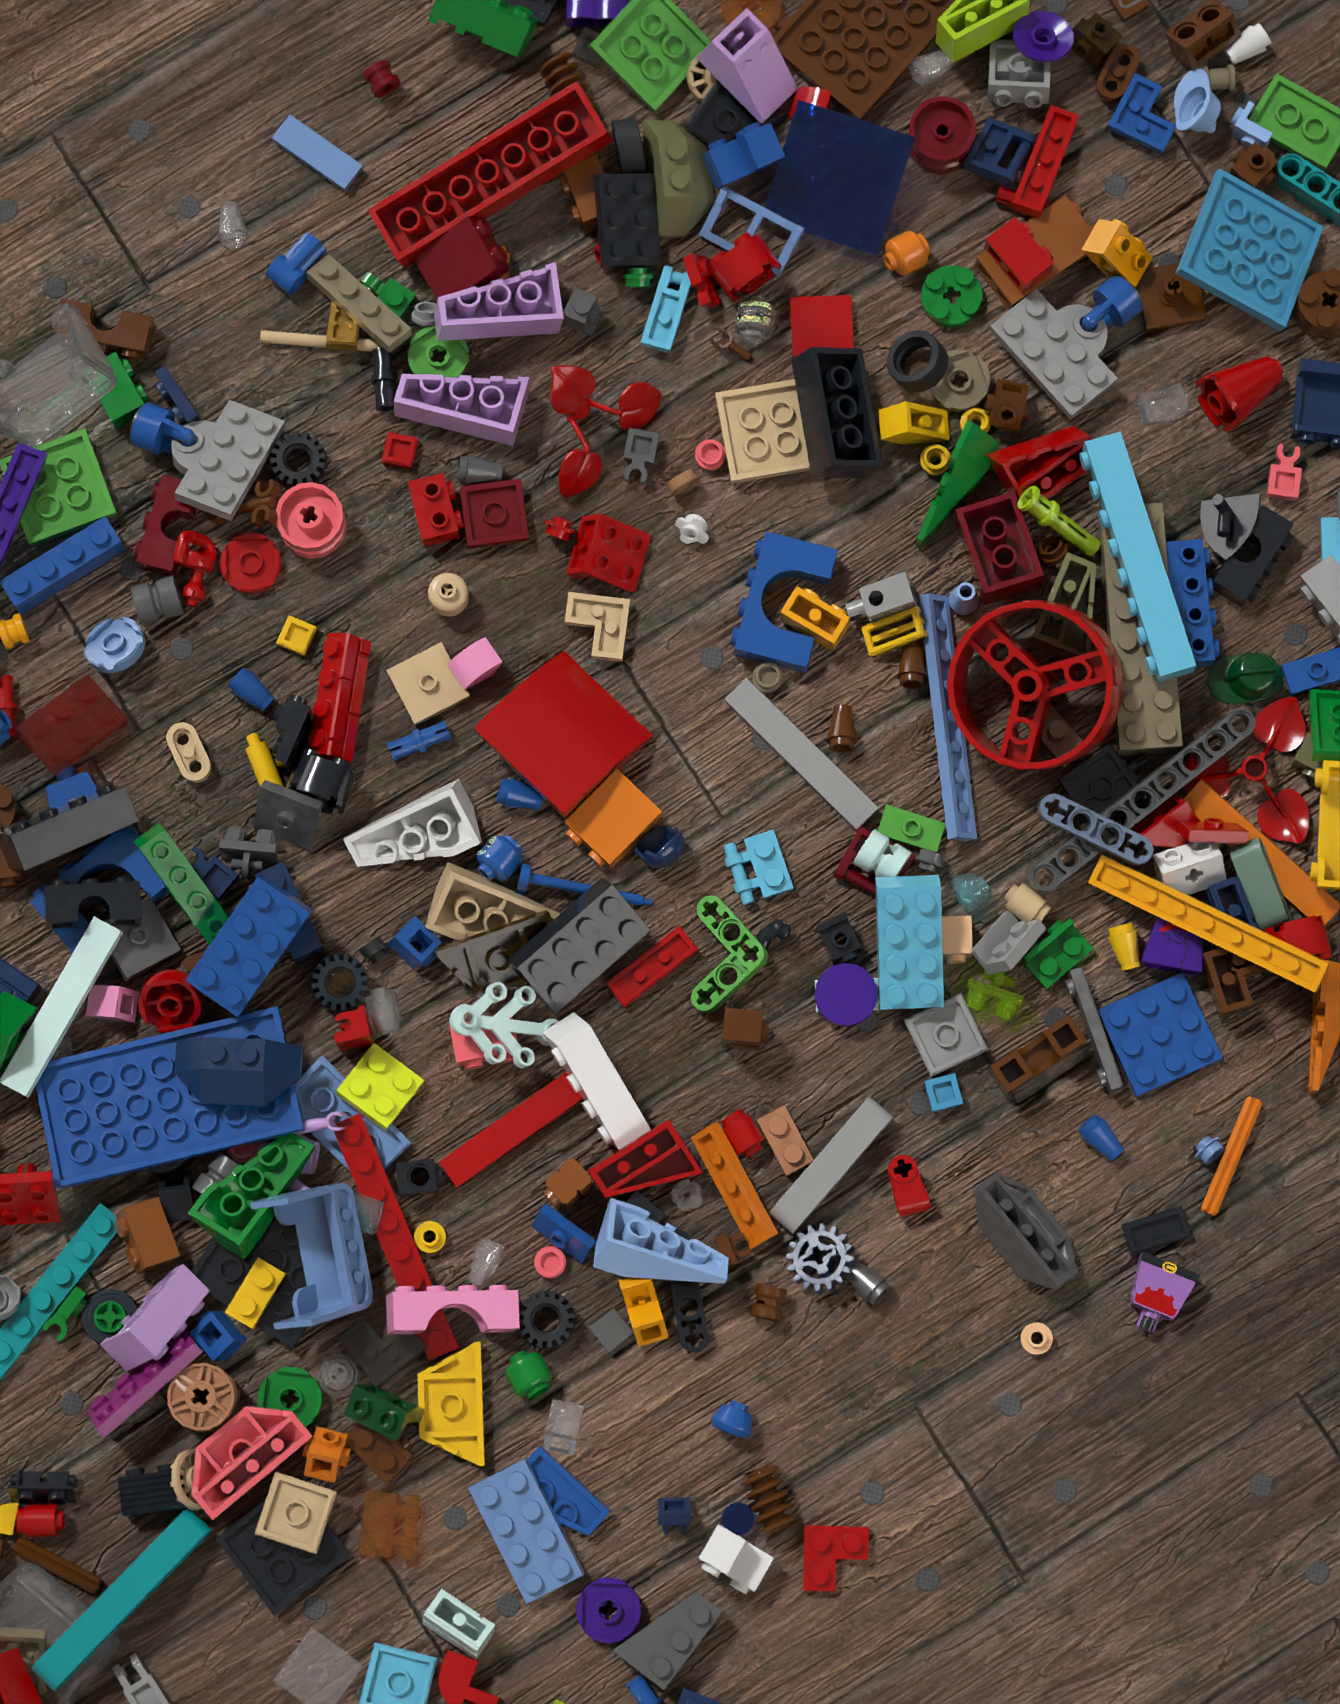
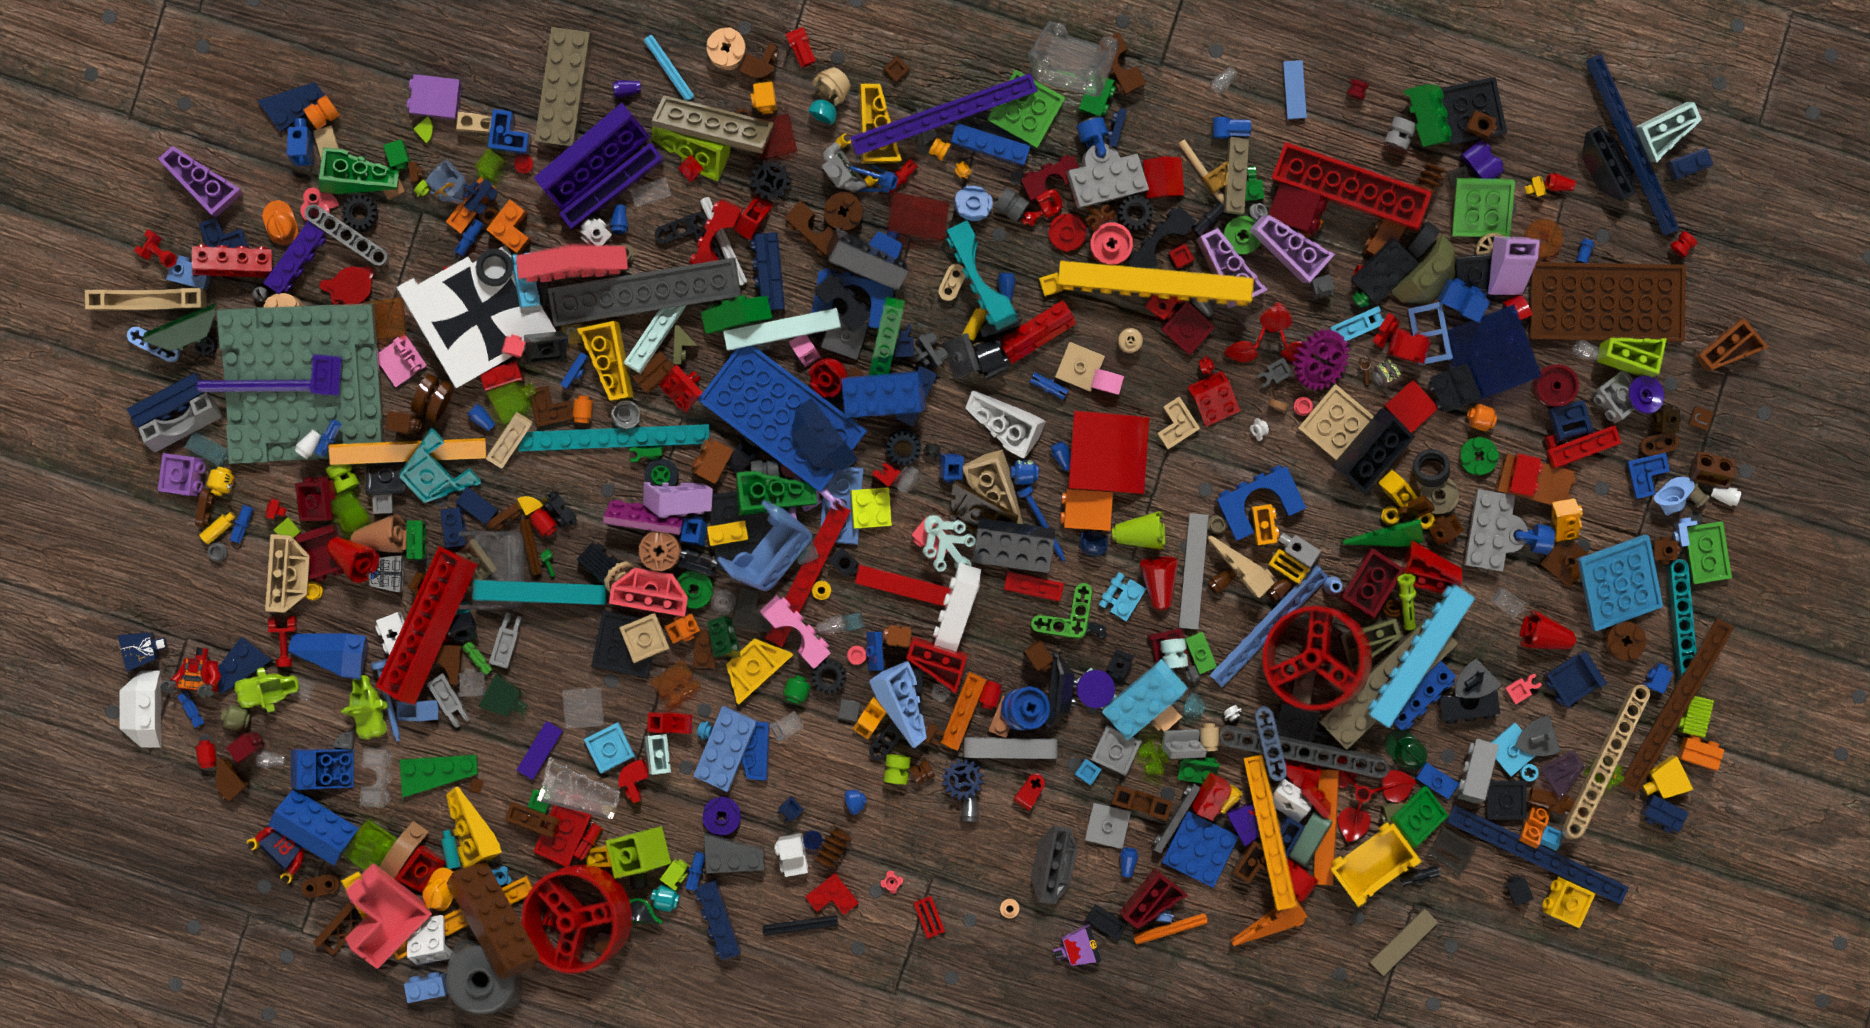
camera: 50 degrees right, 10 degrees up
(64, 625) = (963, 170): none -> light orange plate
(86, 1553) = (546, 556): none -> green hand
(249, 1371) = (704, 564): none -> black hinge
(262, 712) = (997, 305): none -> teal arch
(285, 391) = (1164, 177): none -> red slope
(356, 423) = (1177, 224): none -> black arch
(402, 500) = (1155, 282): none -> yellow brick
(431, 1573) = (669, 722): none -> red brick
(476, 67) = (1405, 129): none -> light grey wheel
(480, 1538) = (704, 730): none -> dark azure plate
(503, 1228) = (853, 621): none -> clear light blue wheel
(663, 360) = (1328, 346): none -> magenta gear
(696, 775) = (1141, 531): none -> lime cone
(737, 1331) = (897, 769): none -> lime wheel
(777, 802) = (1160, 580): none -> red cone
(796, 1102) = (1025, 708): none -> blue wheel
(812, 1042) = (1060, 691): none -> black wedge
(835, 1628) = (800, 925): none -> black axle
(842, 254) = (1455, 387): none -> black plate
(859, 687) = (1250, 573): none -> tan wedge
(885, 1466) = (892, 887): none -> coral plate
(951, 416) = (1416, 507): none -> reddish brown plate
(961, 1437) = (923, 901): none -> red tile
(1020, 852) = (1232, 713): none -> white plate
(1033, 1125) = (1107, 825): none -> light grey plate
(1103, 962) = (1211, 796): none -> red brick
(1171, 1145) = (1151, 898): none -> dark red wedge

